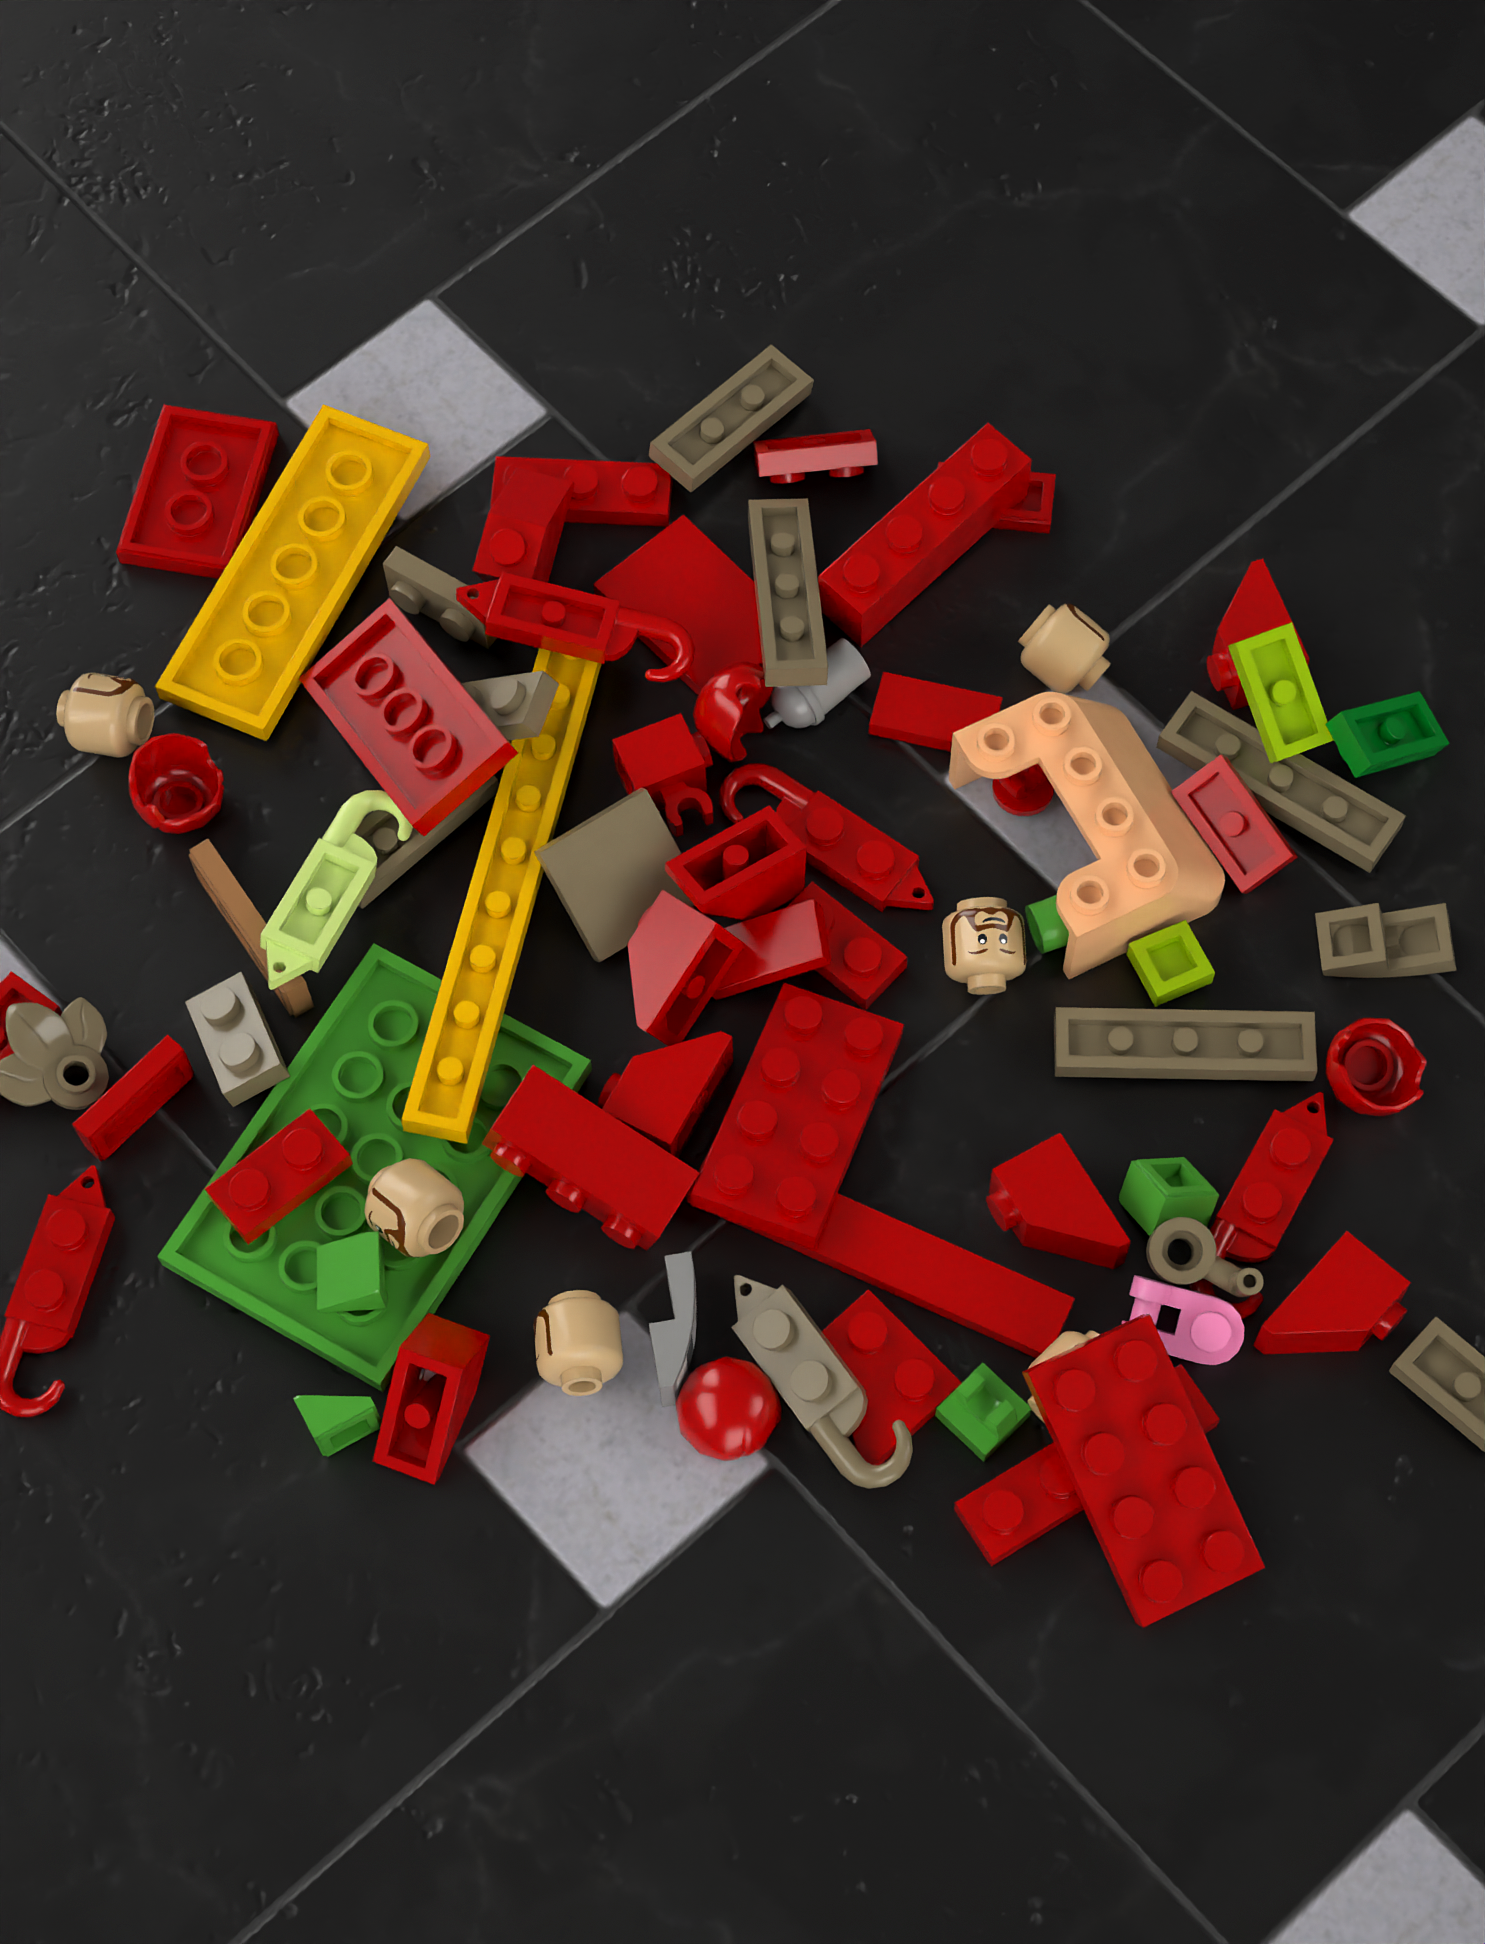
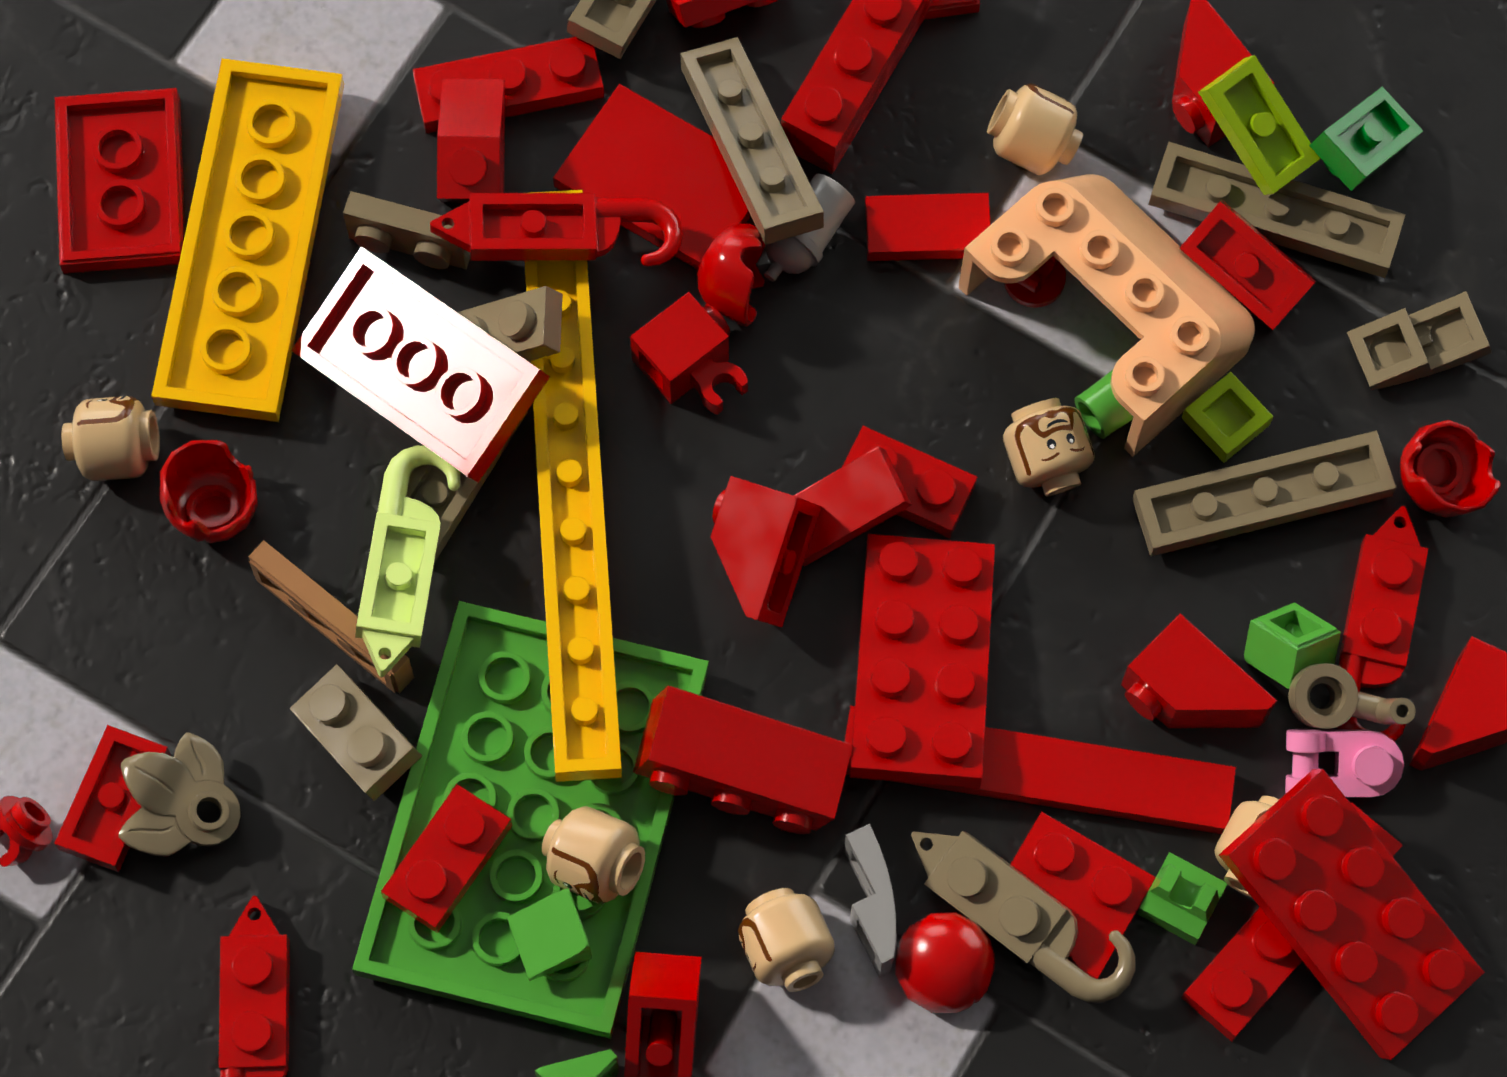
camera: 20 degrees left, 5 degrees up
(134, 1098) = (274, 819): red tile -> none
(612, 871) = (676, 468): dark tan tile -> none
(669, 1089) = (791, 670): red slope -> none
(743, 868) = (800, 432): red slope -> none
(836, 840) = (868, 377): red plate -> none

